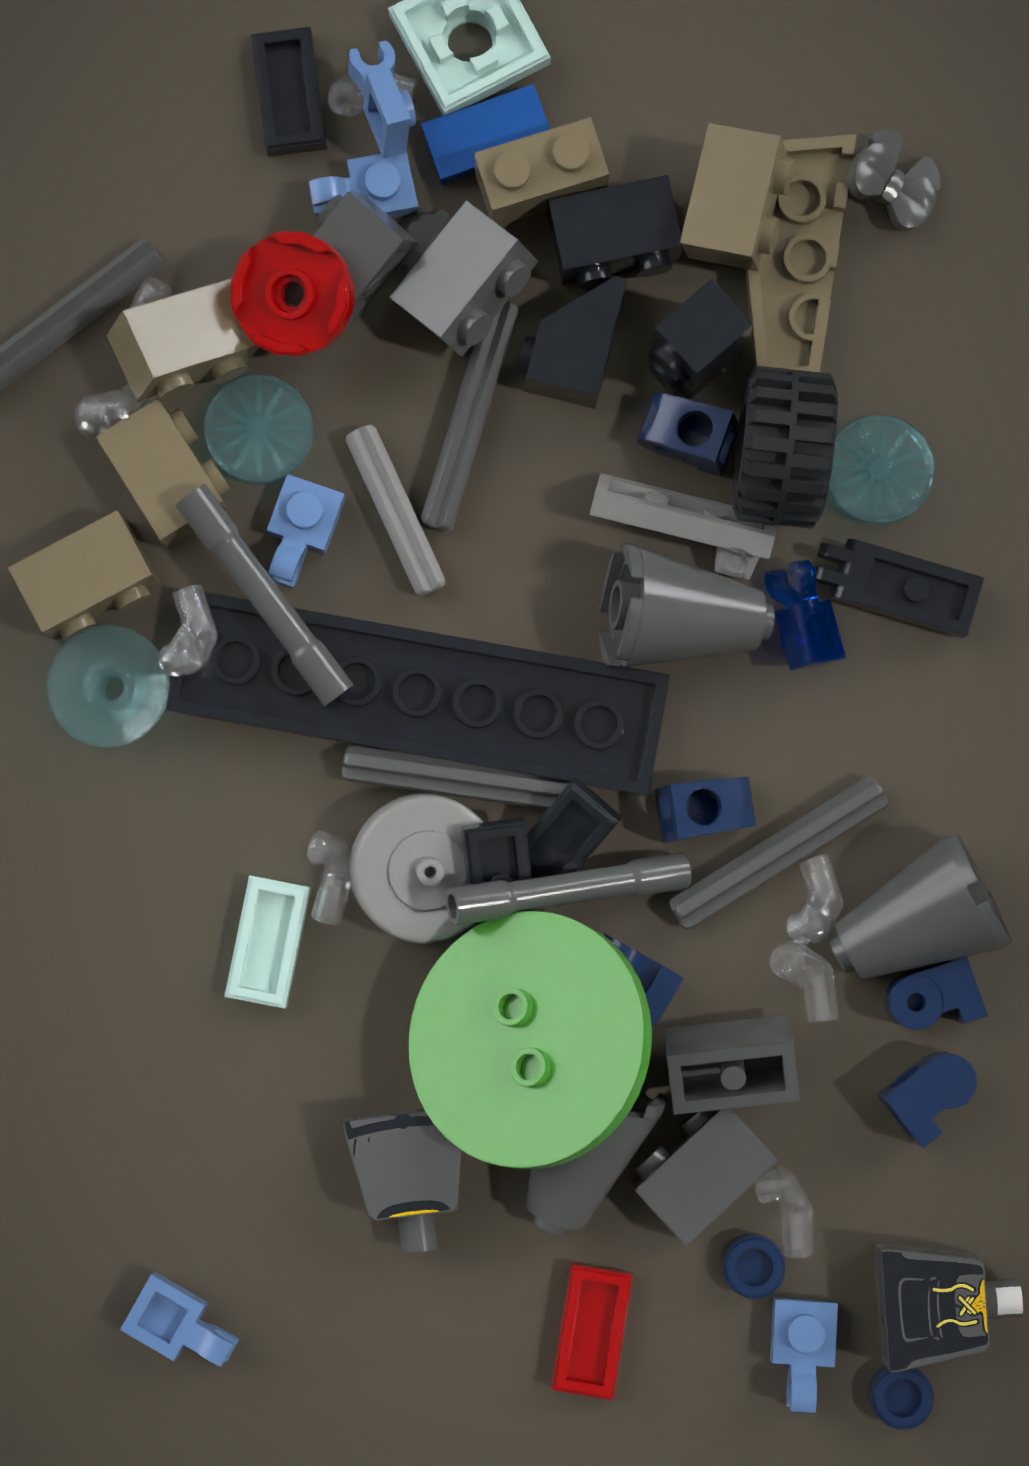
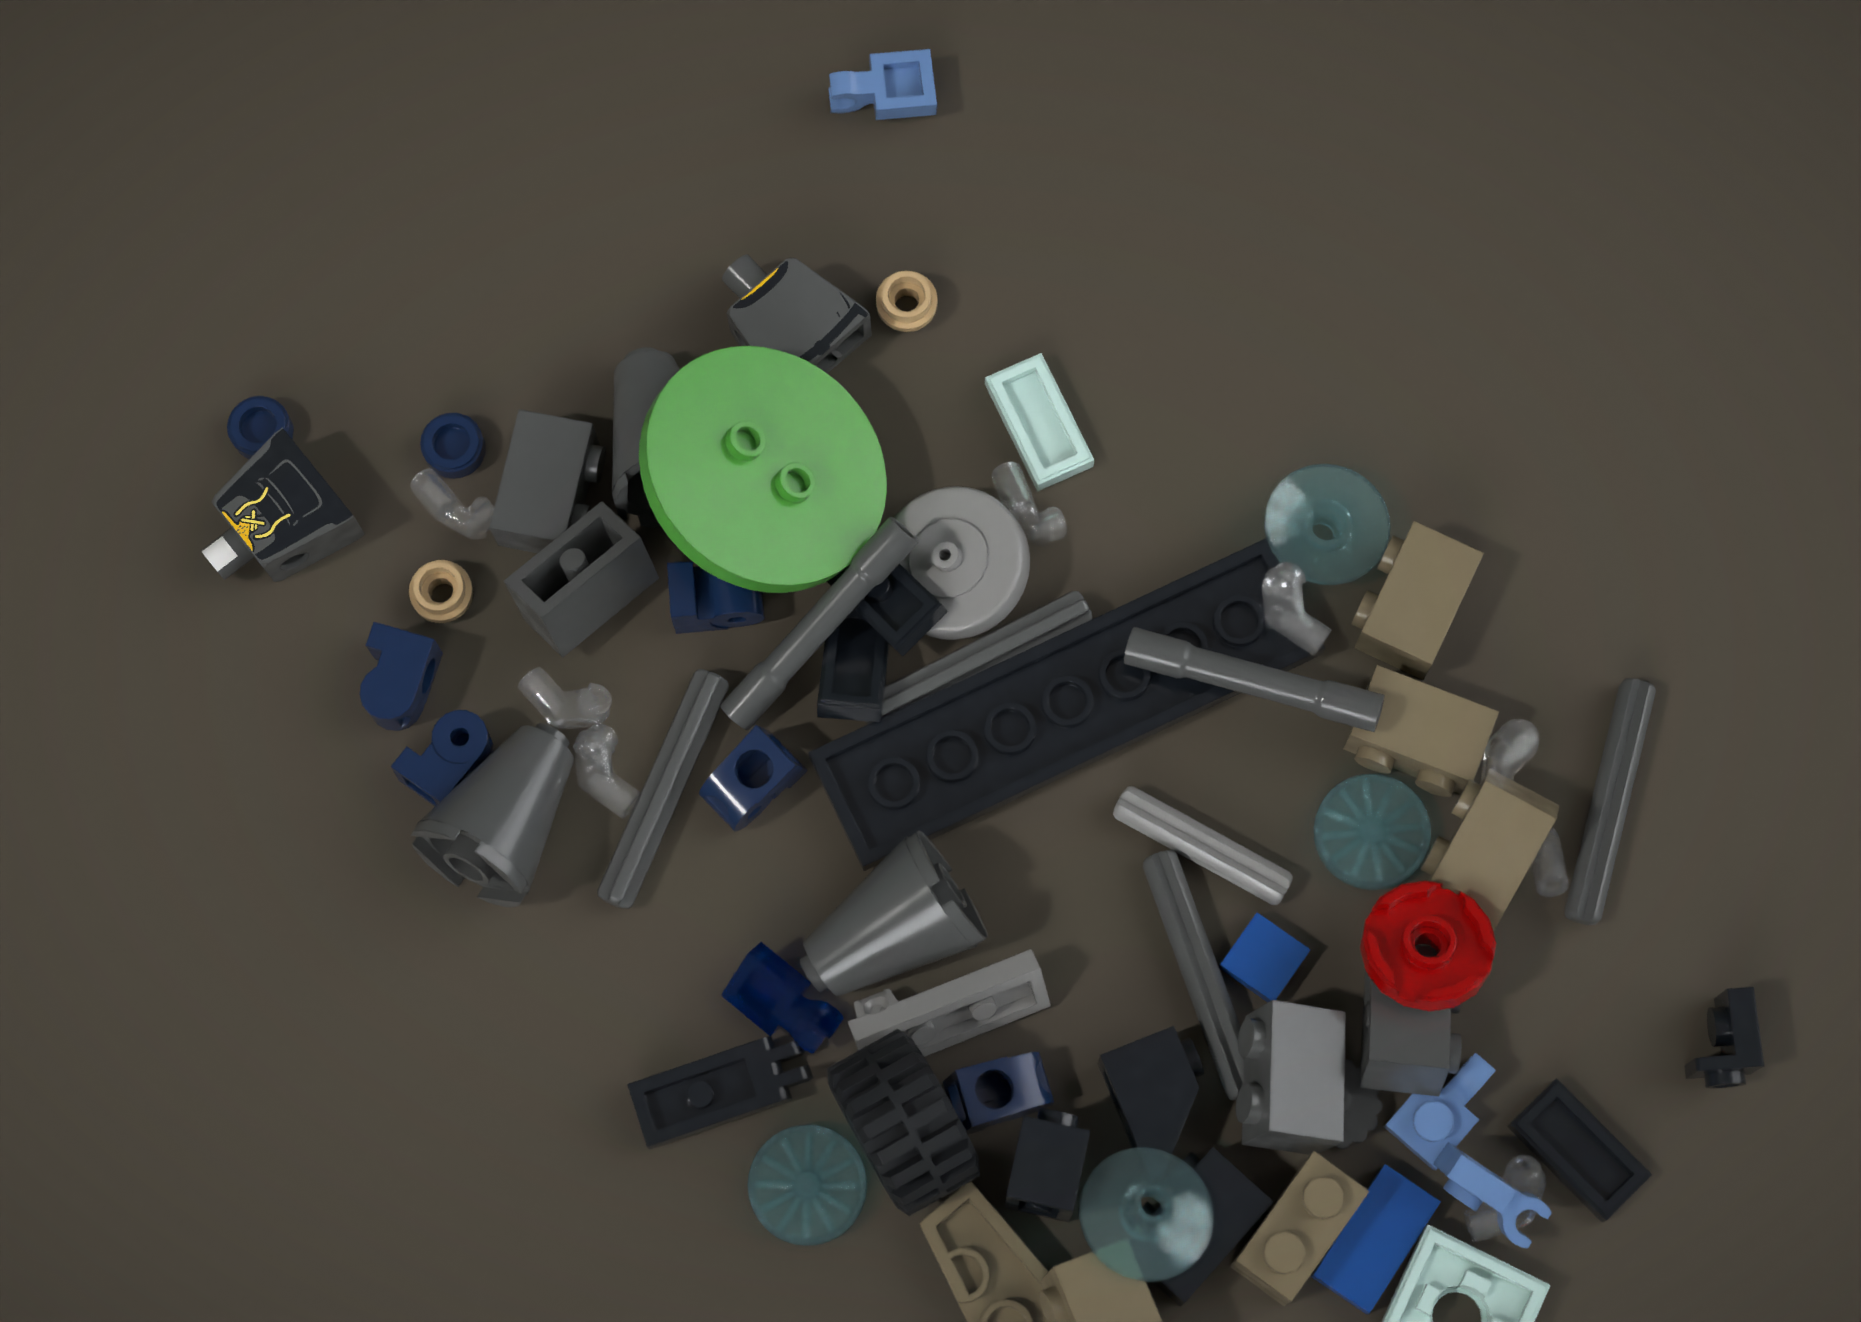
camera: 145 degrees right, 10 degrees down
(108, 84) = (1736, 1030): none -> black bracket
(279, 1121) = (906, 284): none -> tan plate
(303, 521) = (1273, 781): medium blue plate -> none
(413, 392) = (1264, 958): none -> blue tile
(592, 1331) = (551, 307): red tile -> none
(676, 266) = (1128, 1237): none -> clear light blue dish
(803, 1338) = (371, 414): medium blue plate -> none
(865, 1148) = (431, 576): none -> tan plate

